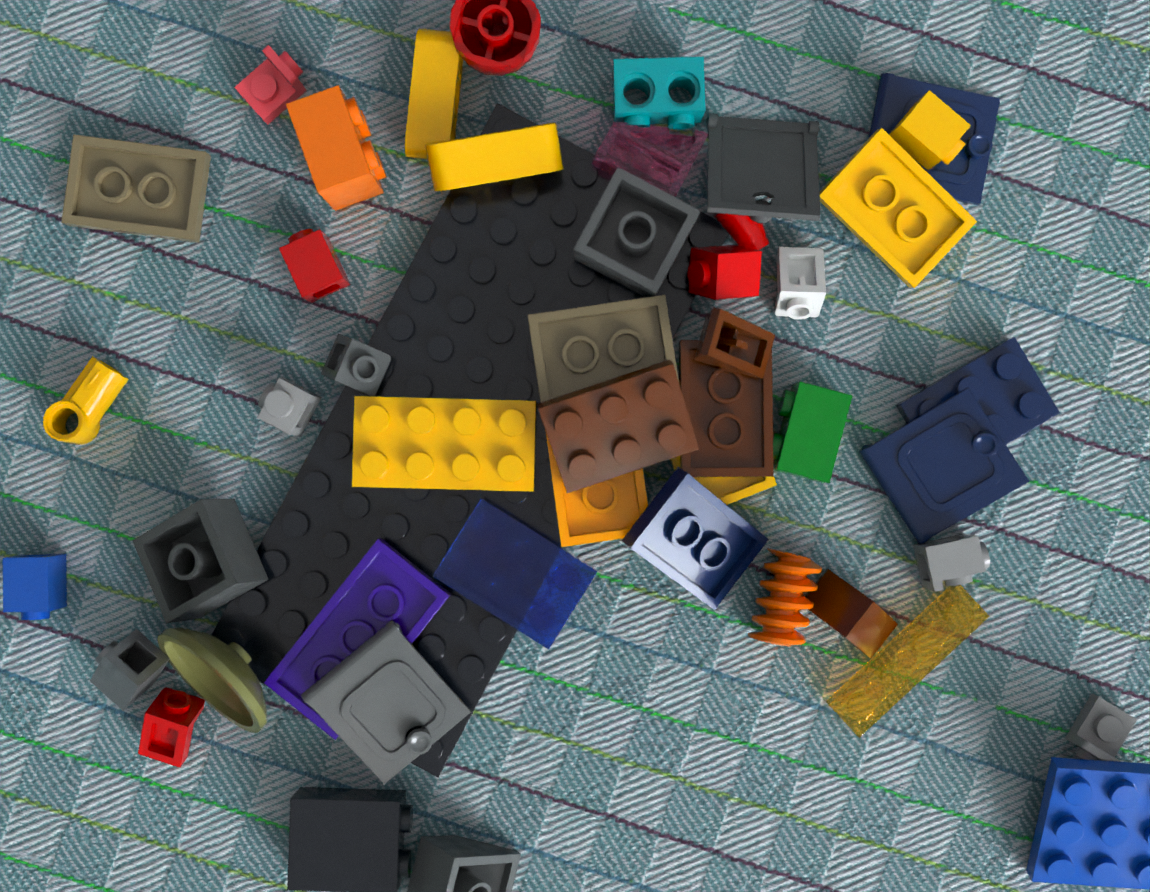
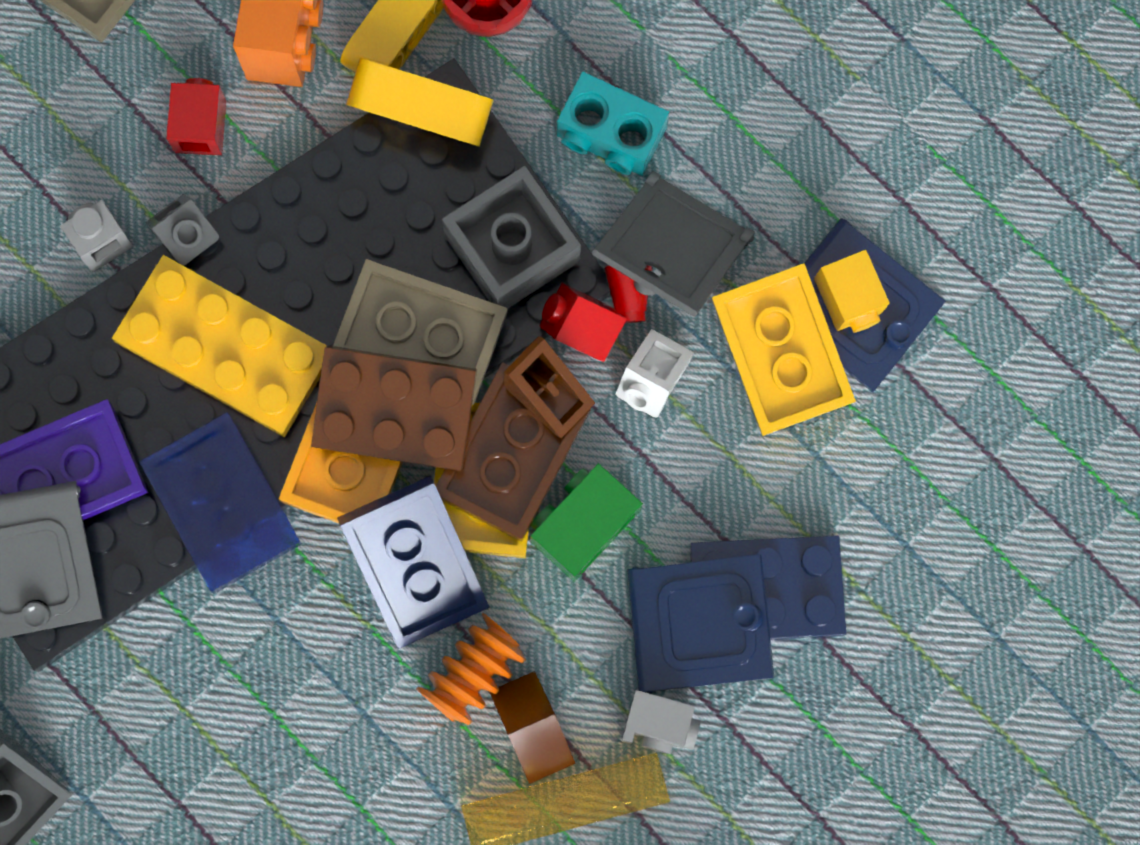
camera: 25 degrees right, 10 degrees down
(649, 154) = (572, 178): clear pink wing -> none

